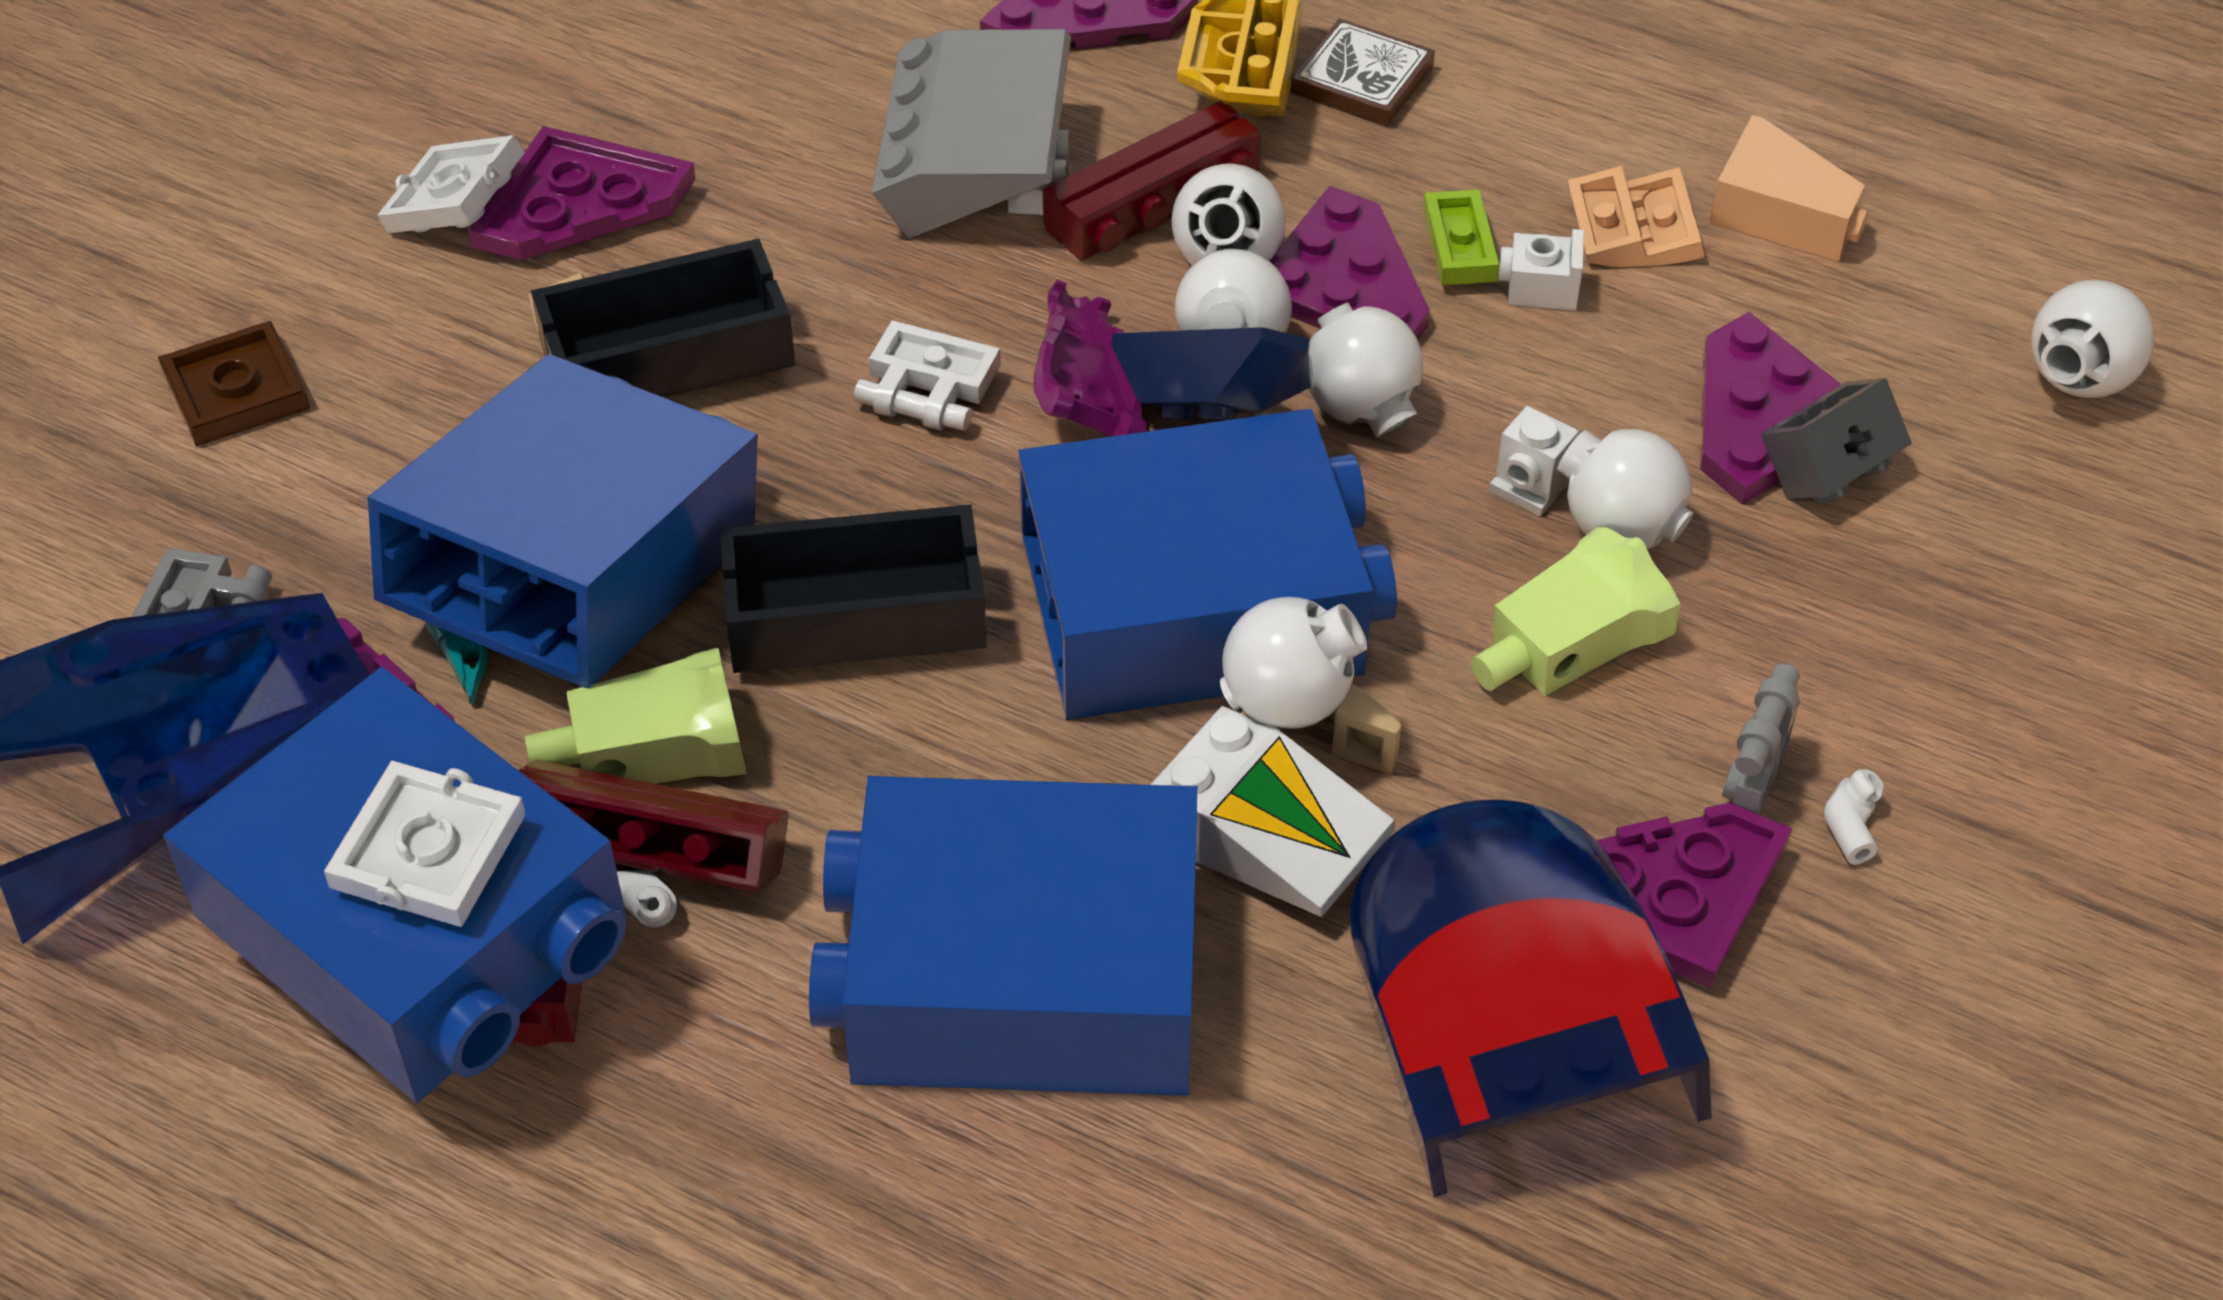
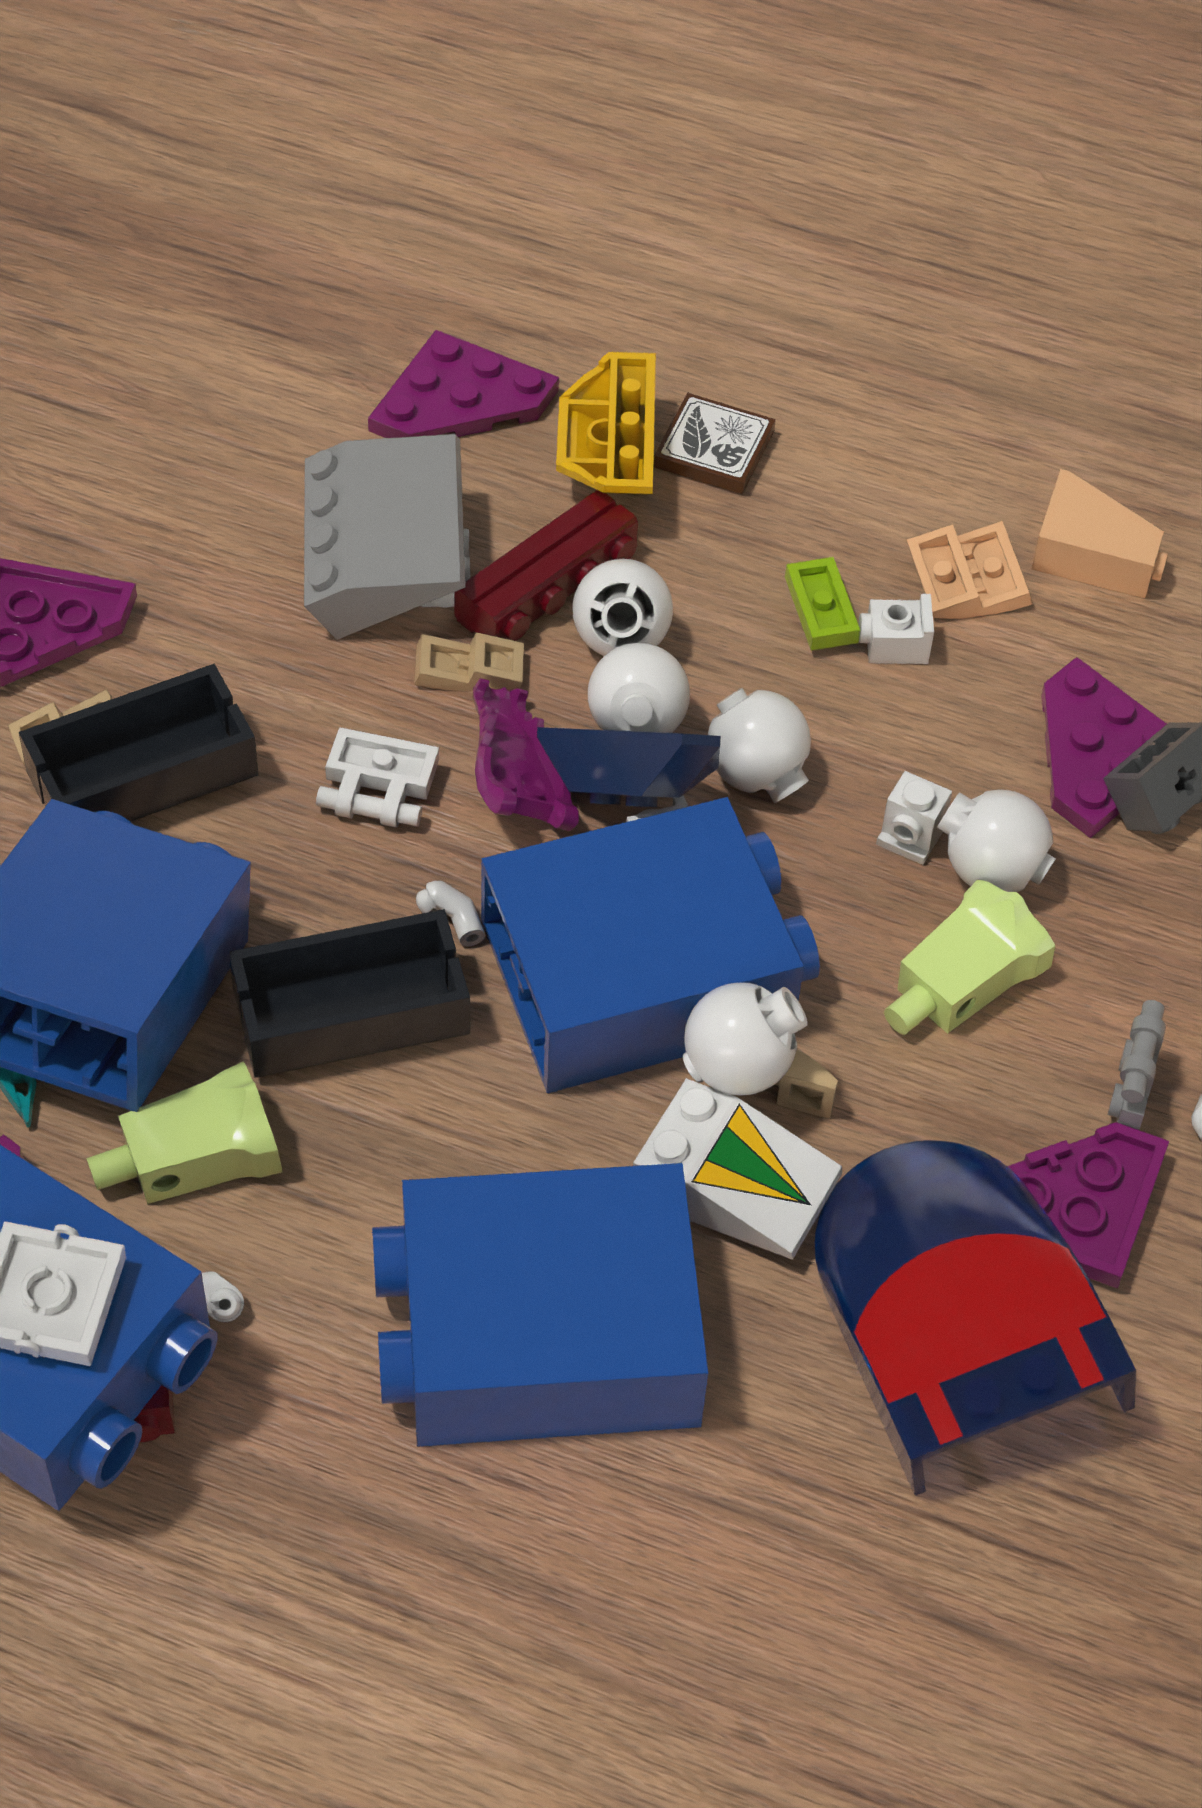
camera: 10 degrees left, 5 degrees up
(673, 827) = (225, 1232): dark red brick -> none
(995, 515) = (457, 905): none -> white arm
(1031, 270) = (460, 665): none -> tan slope
(1348, 256) = (730, 639): magenta plate -> none

